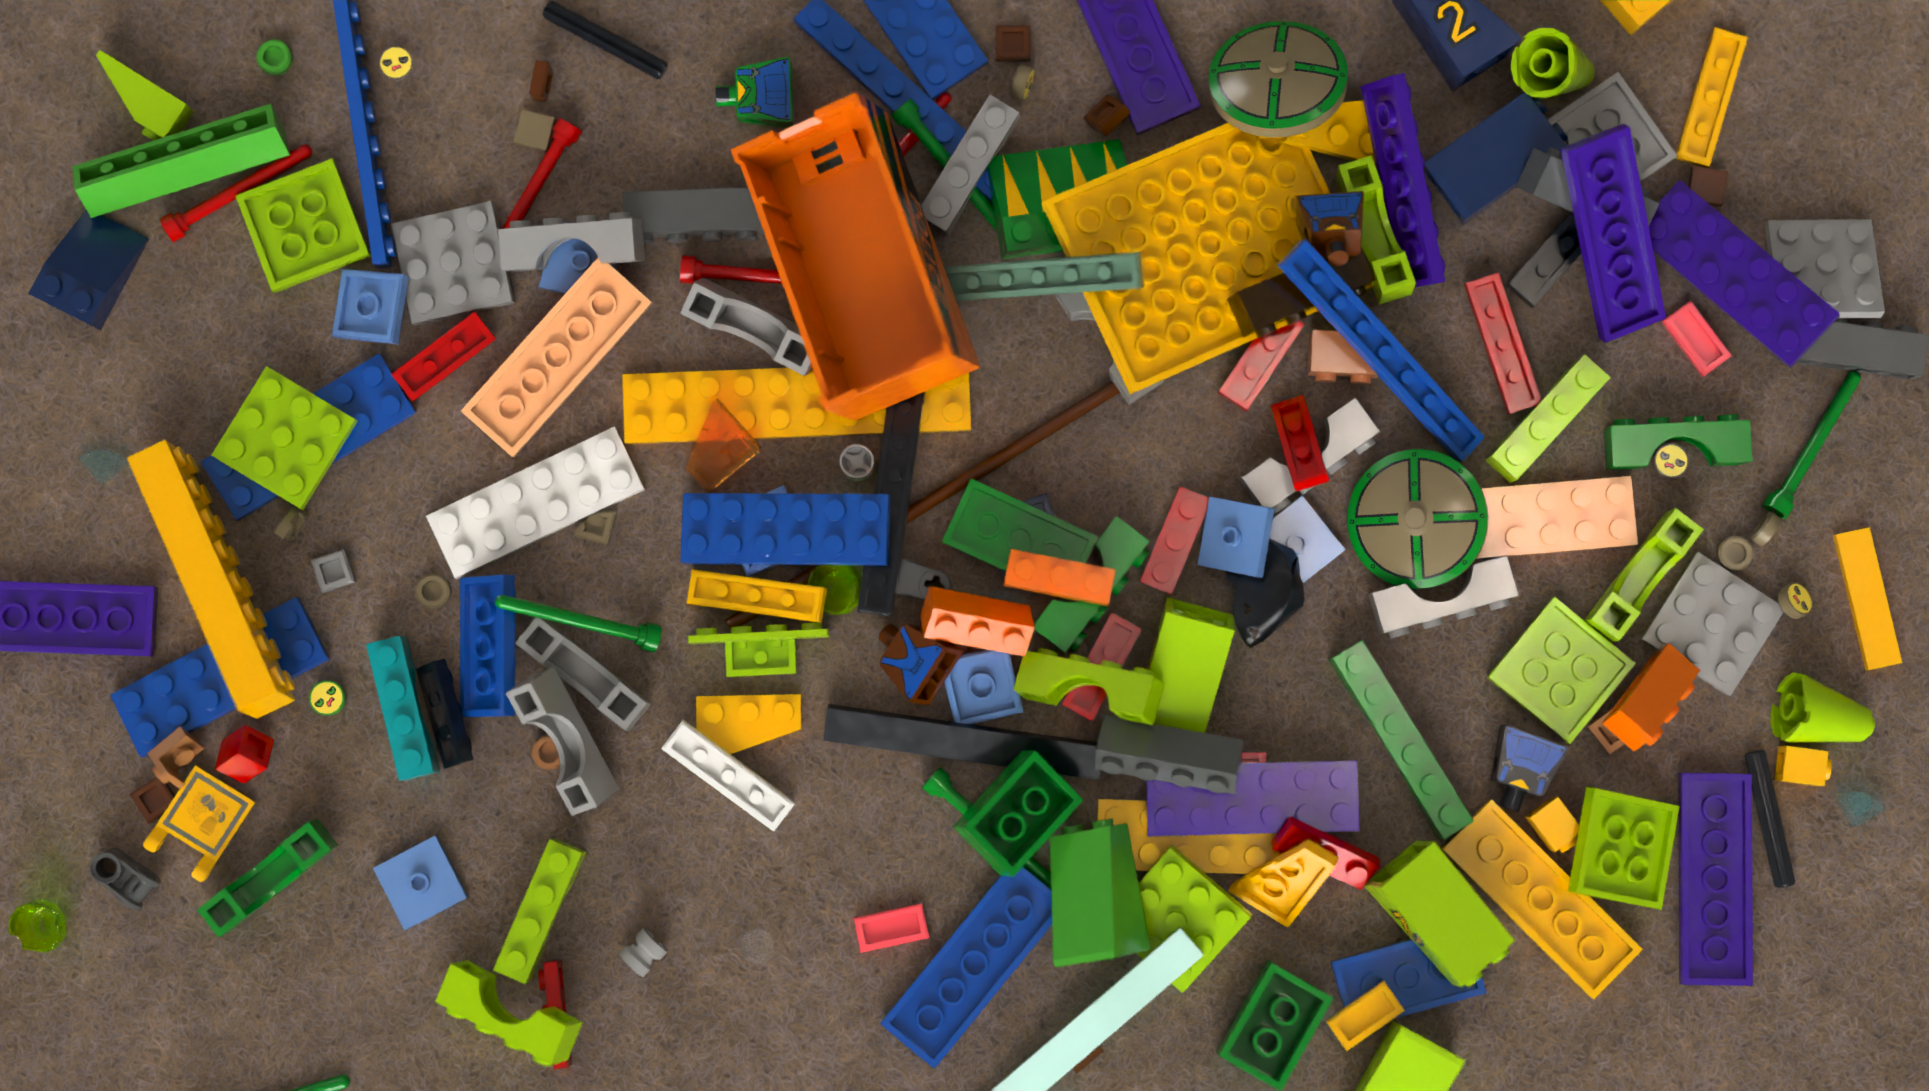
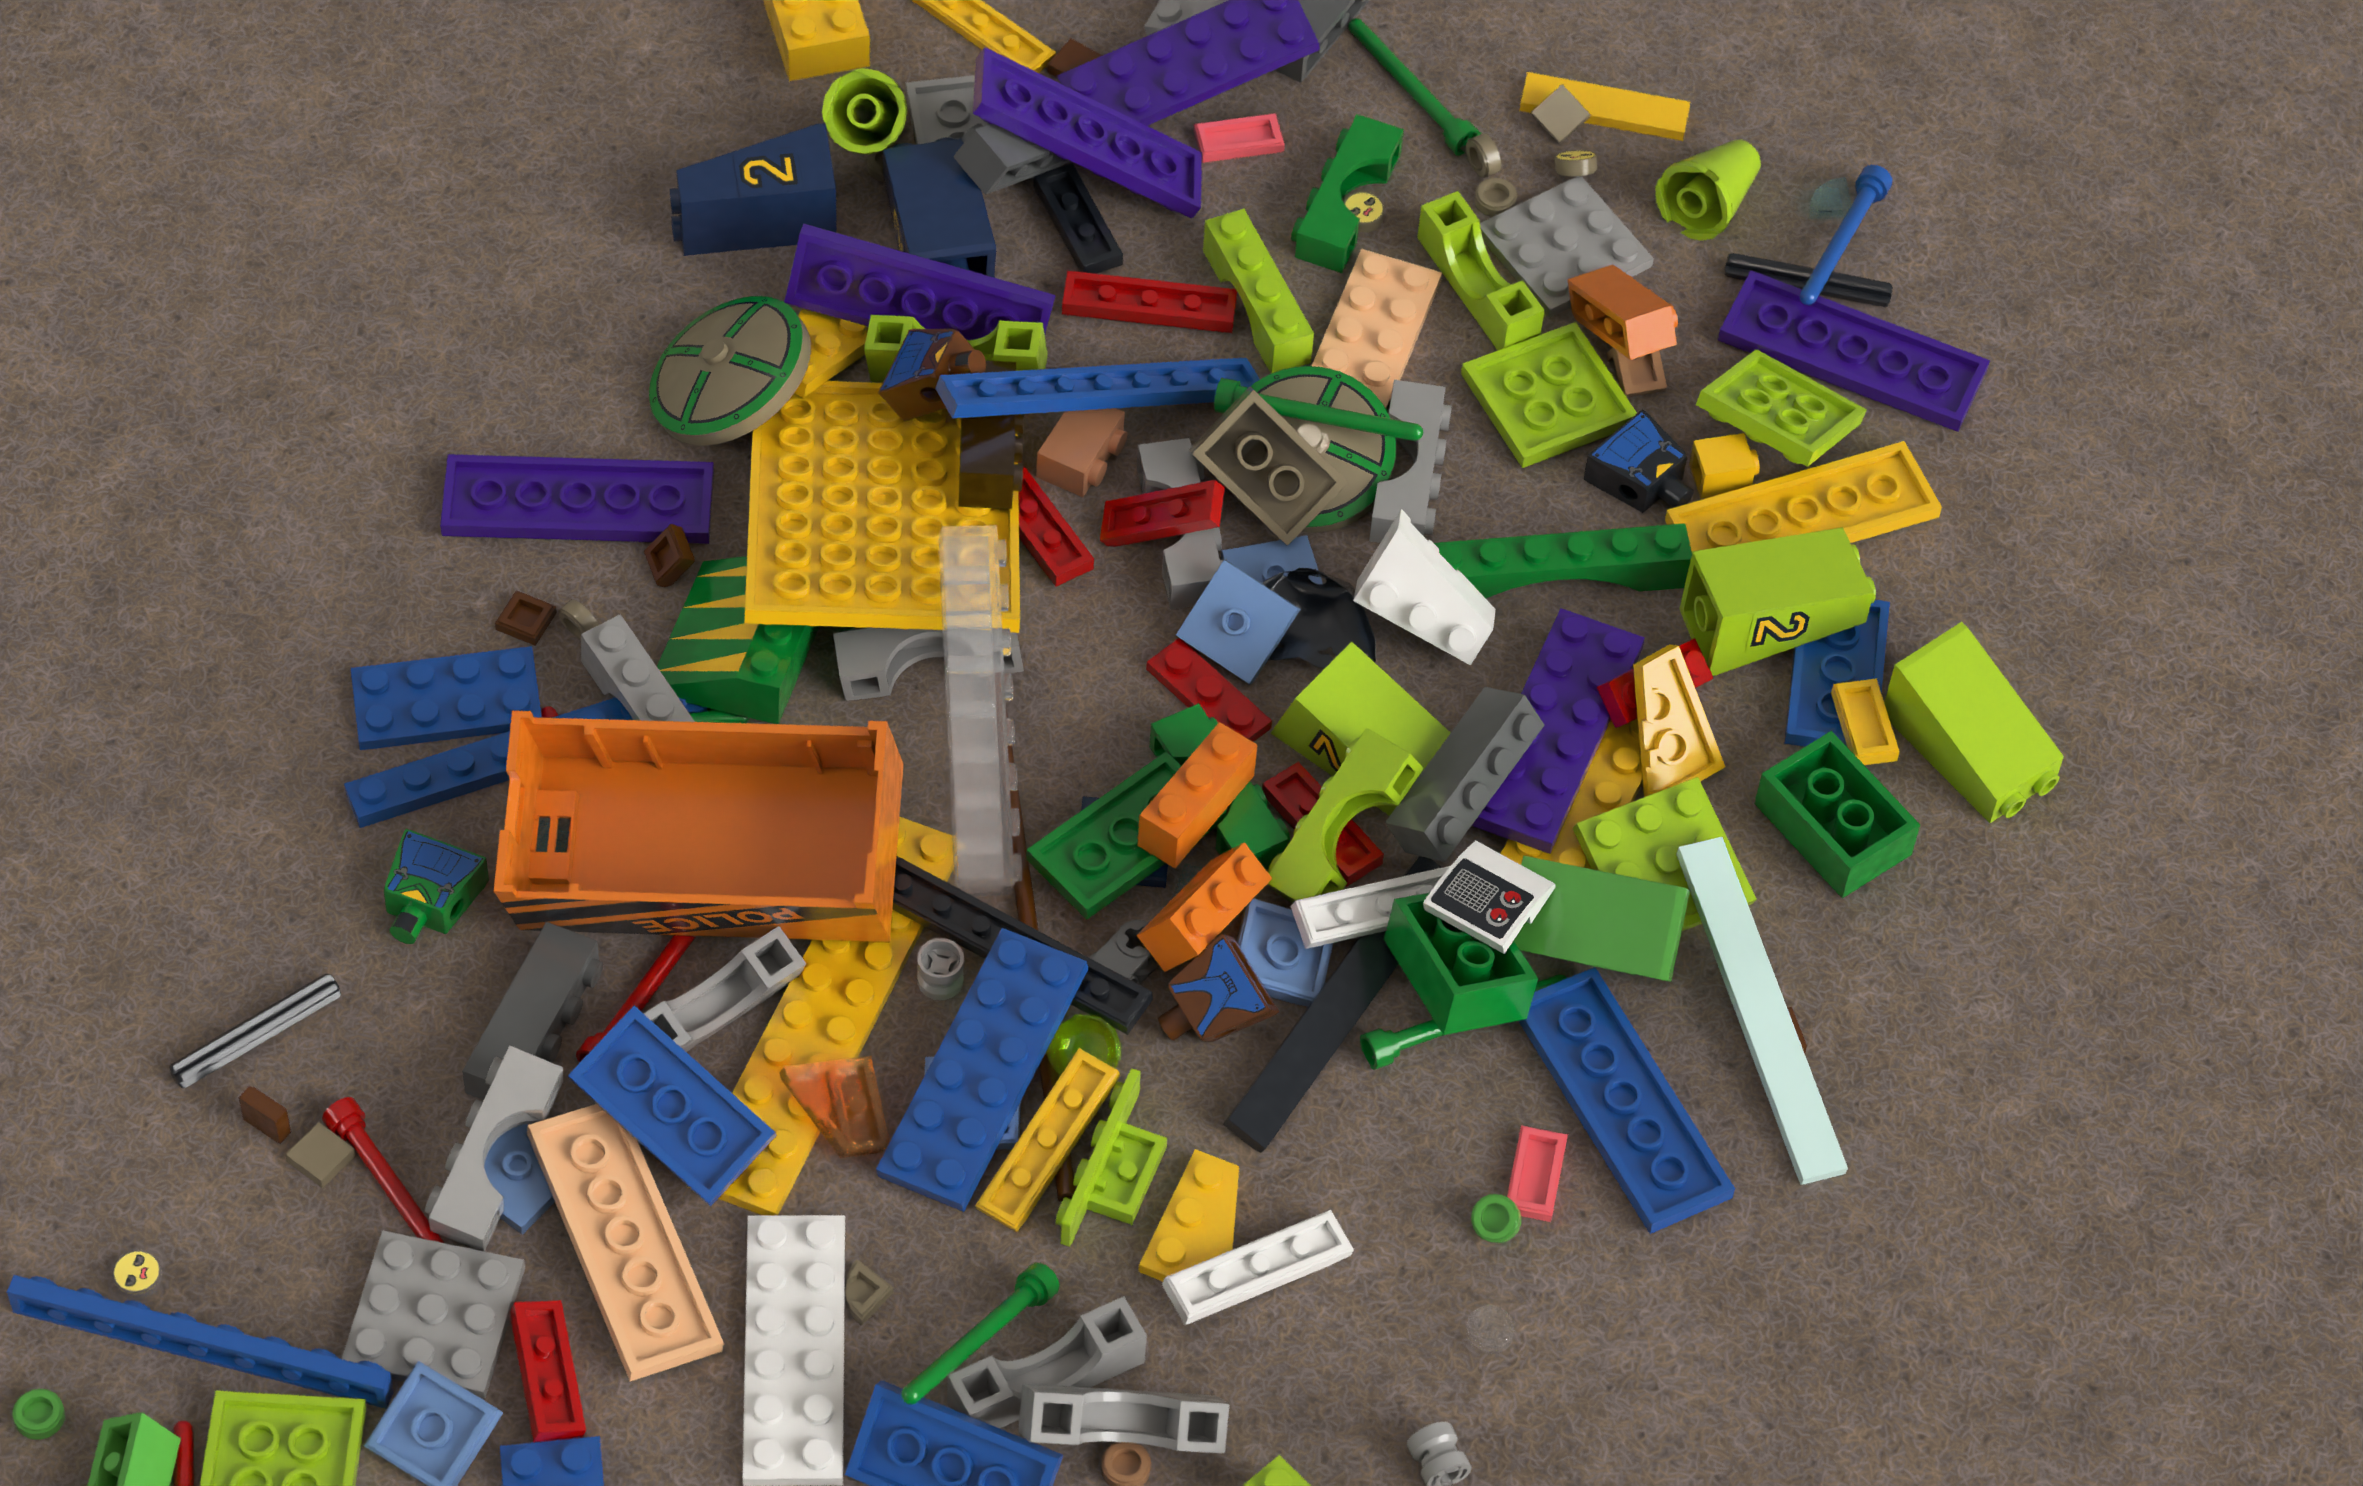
camera: 70 degrees left, 30 degrees down
(651, 342) = (672, 1105): none -> blue plate
(840, 916) = (1496, 1218): none -> bright green tile
(1038, 734) = (1357, 909): none -> white tile
(1046, 276) = (843, 628): sand green tile -> none
(1049, 395) = (977, 710): none -> clear brick
(1064, 816) = (1488, 896): none -> slope
(1312, 661) = (1424, 593): none -> white wedge
(1374, 498) = (1268, 466): none -> dark tan slope
(1424, 451) = (1230, 390): none -> green piece
(1802, 766) = (1762, 225): yellow brick -> none
(1836, 570) = (1560, 114): none -> dark tan tile
(1886, 832) = (1870, 187): none -> blue piece

